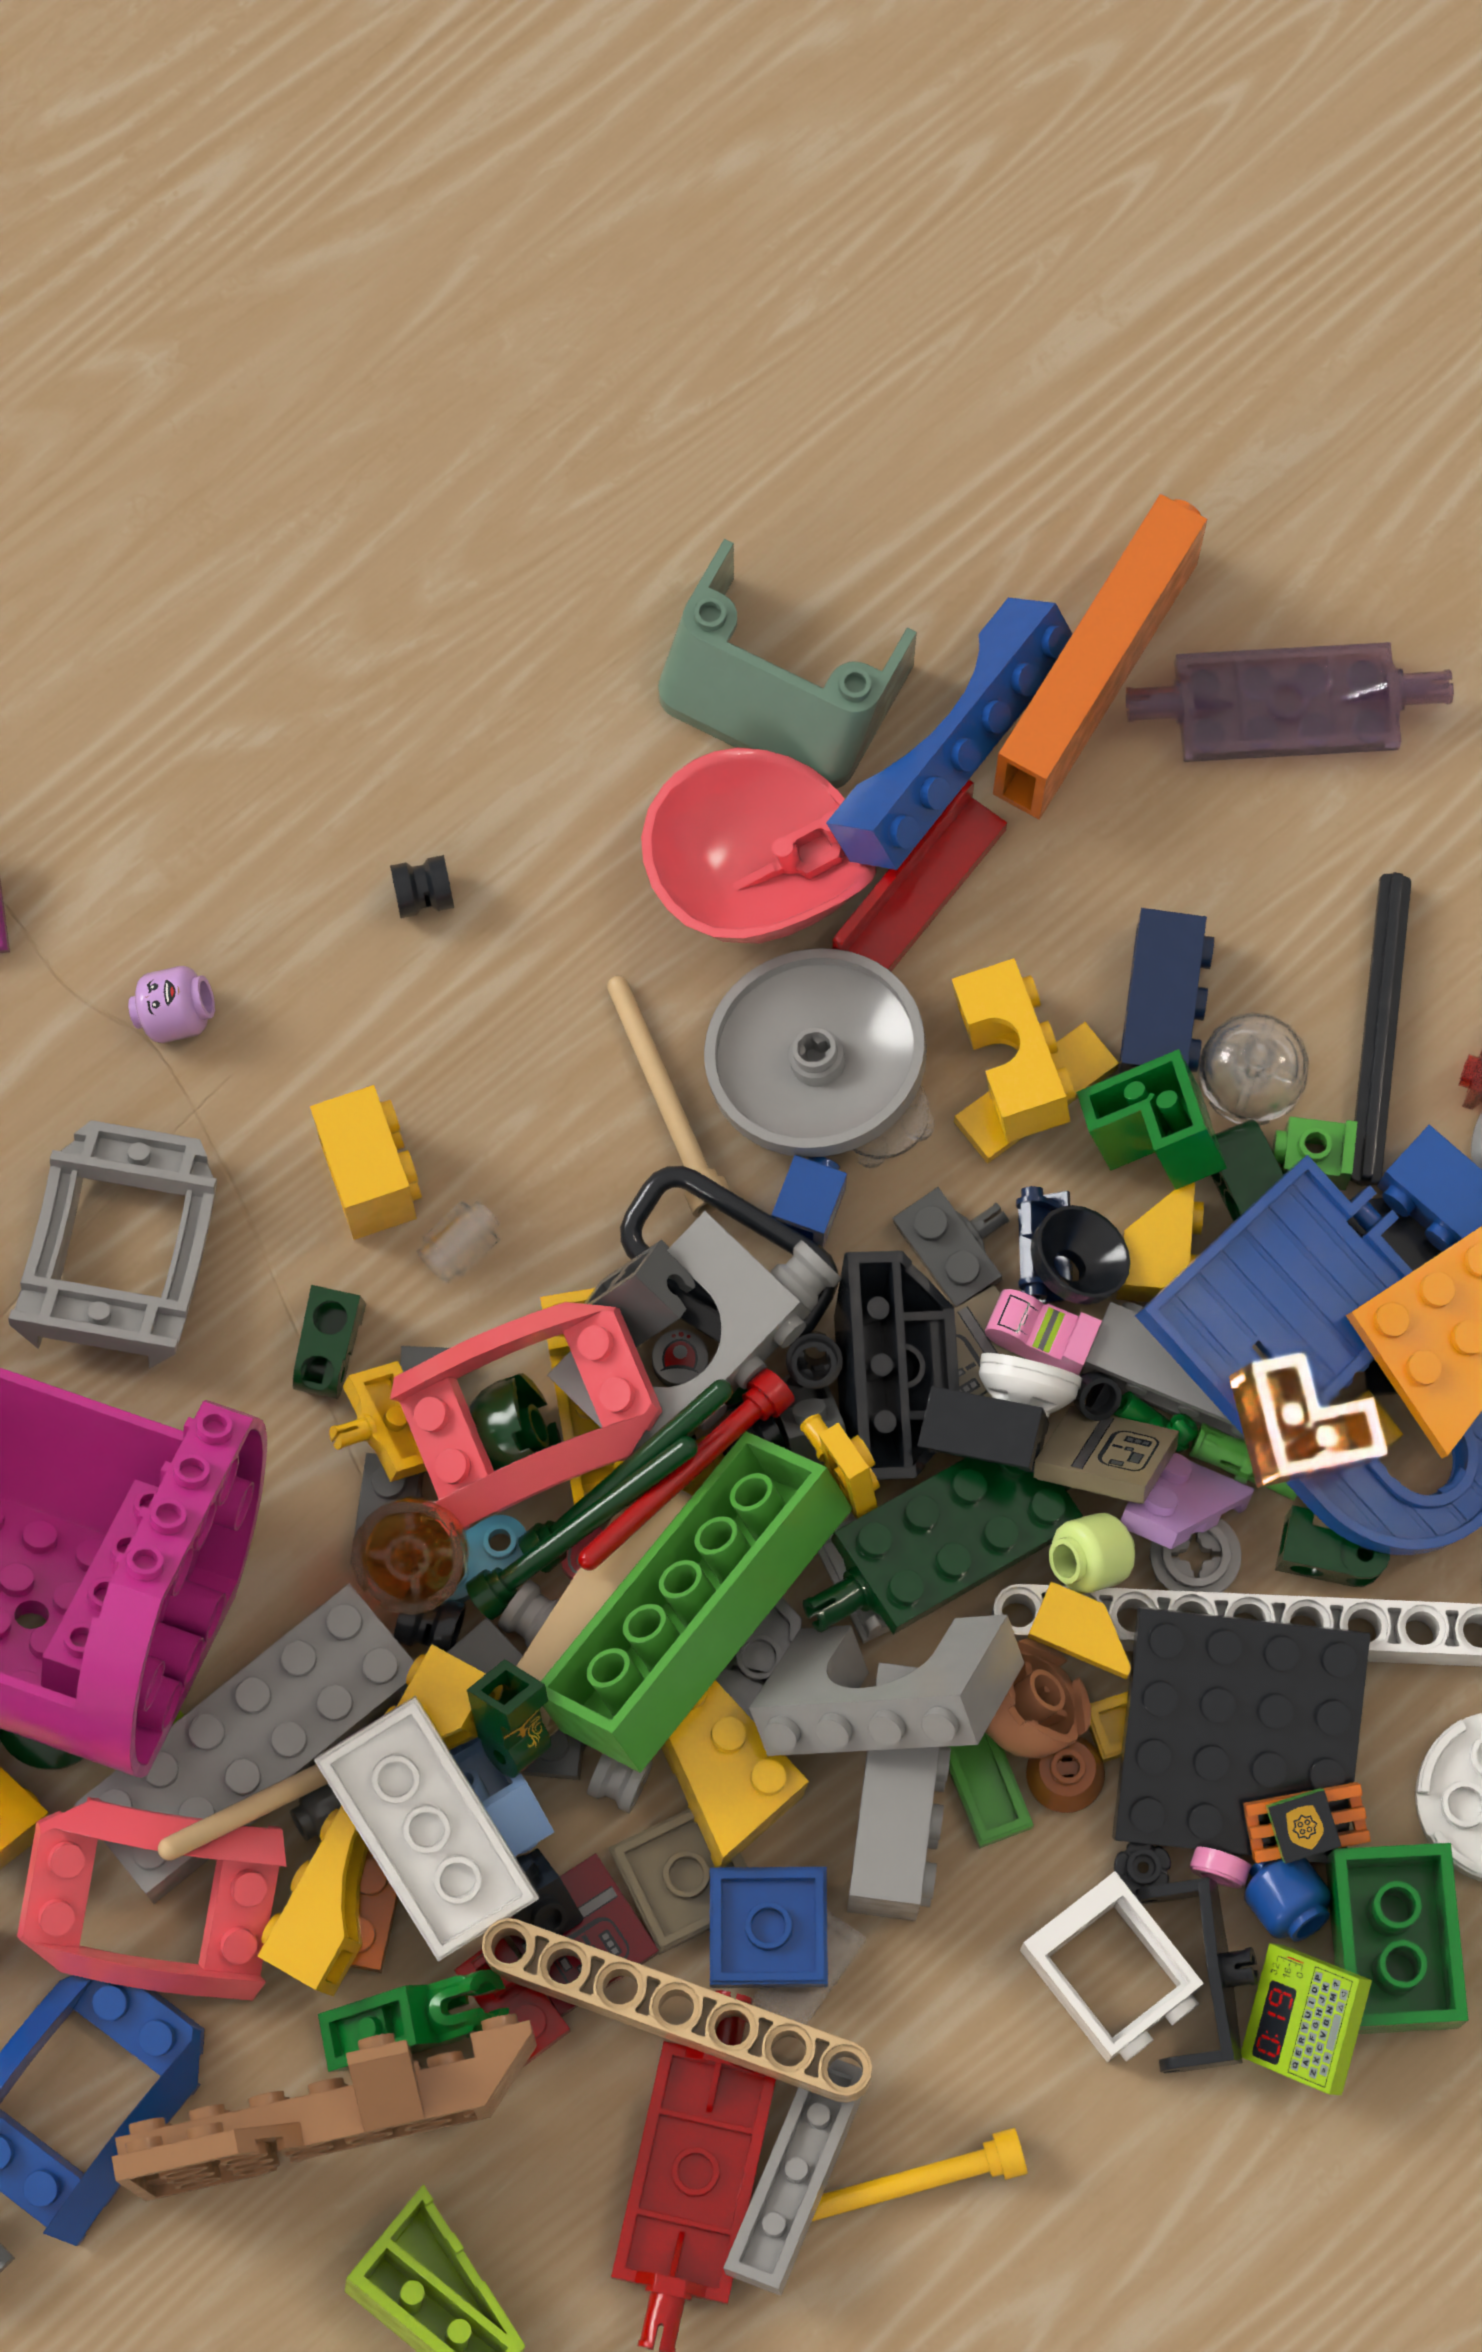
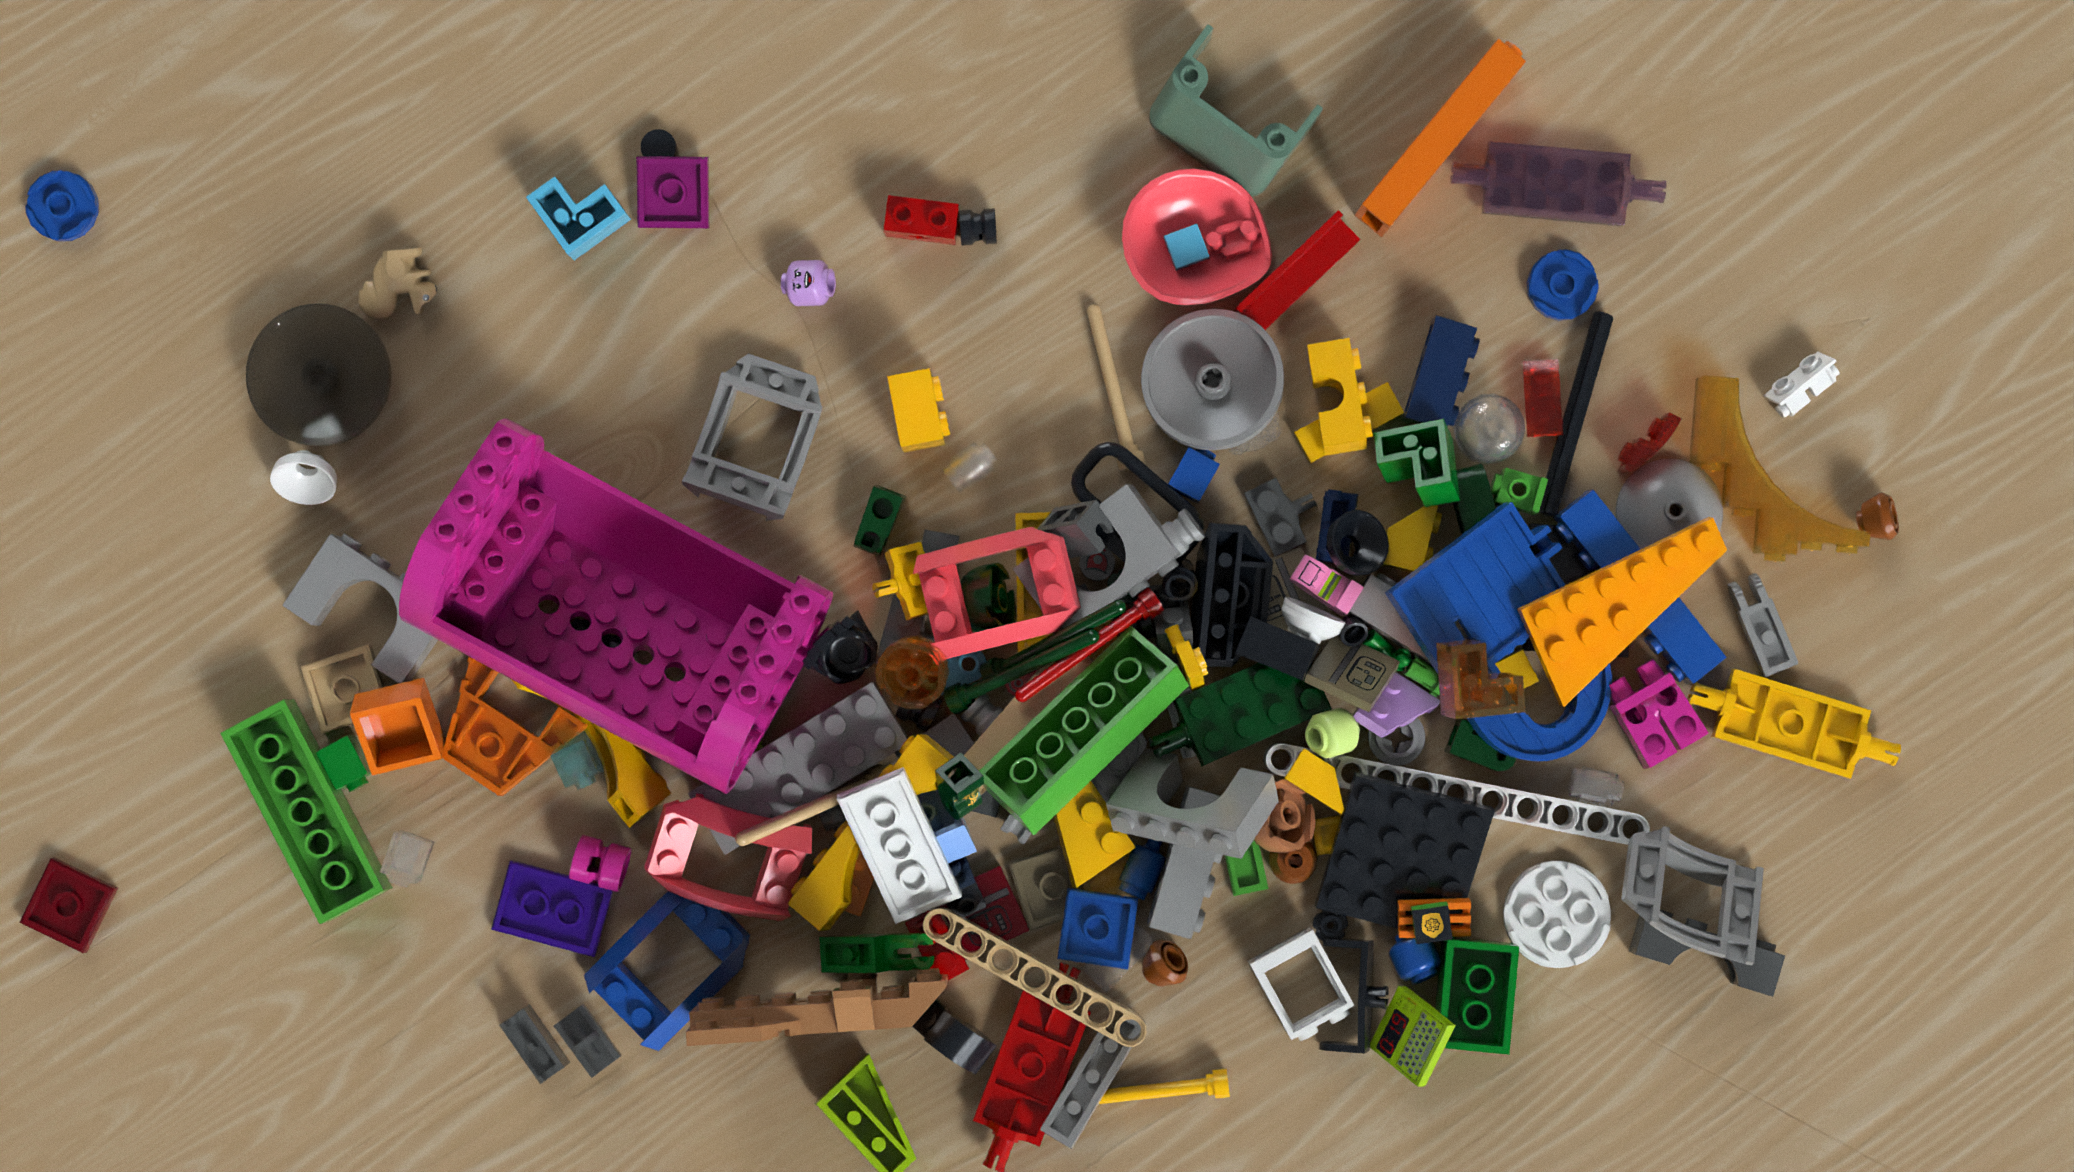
camera: 10 degrees right, 15 degrees up
(294, 1543) = (843, 650): none -> black hair
(334, 887) = (921, 220): none -> red brick
(559, 2139) = (954, 1037): none -> black brick
(744, 868) = (1186, 247): none -> medium azure tile
(827, 1818) = (1142, 869): none -> blue piece
(885, 1969) = (1165, 964): none -> dark orange cone
(899, 805) = (1292, 226): blue arch -> none
(1220, 1867) = (1376, 933): bright pink tile -> none
(1325, 846) = (1562, 285): none -> blue tile
(1326, 1010) = (1542, 398): none -> clear red slope

